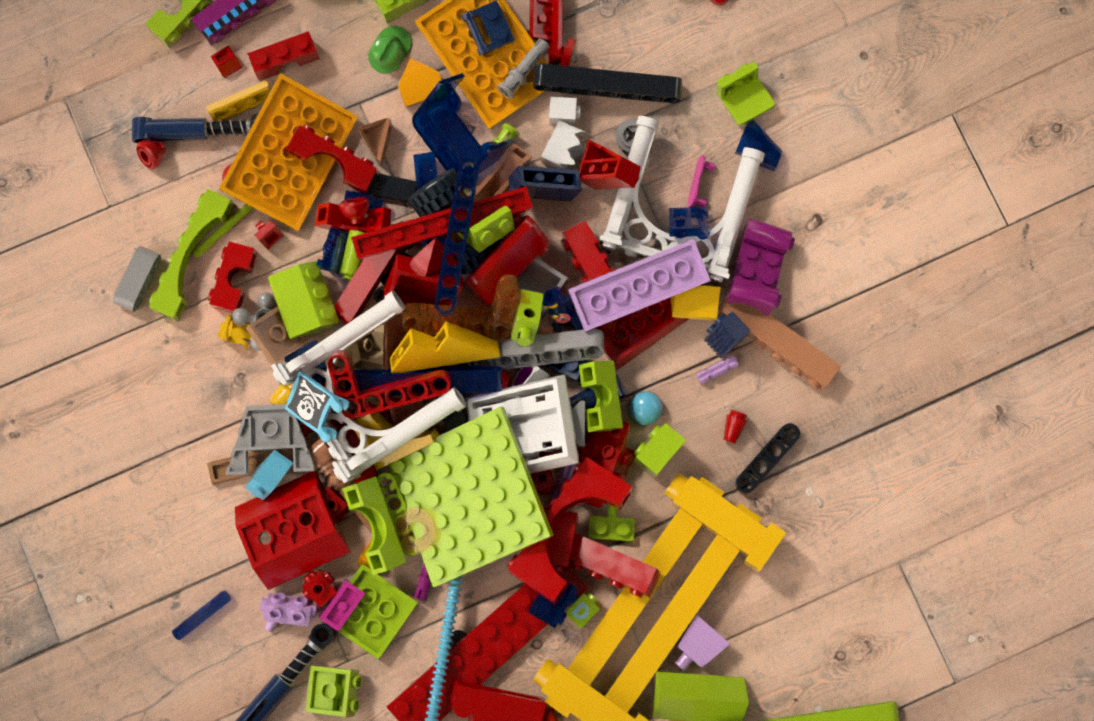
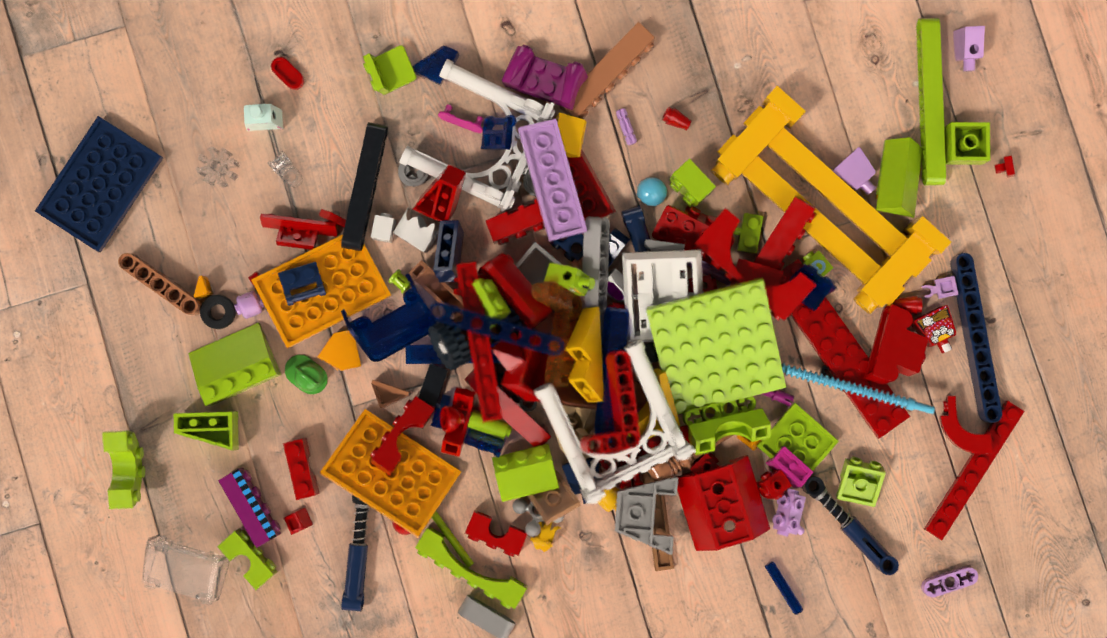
camera: 80 degrees left, 5 degrees up
(150, 153) = (374, 595): red brick -> none
(239, 102) = (338, 512): yellow tile -> none
(267, 234) = (460, 498): red tile -> none
(268, 475) = (675, 518): medium azure slope -> none
(312, 403) = (624, 471): flag -> none
(425, 541) = (745, 405): clear orange piece -> none
(517, 75) = (348, 263): light grey pin -> none
(557, 305) = (560, 252): clear blue animal -> none
(601, 378) = (655, 222): lime arch -> none
(726, 333) = (599, 113): dark blue brick -> none
(767, 458) = (703, 97): black beam -> none

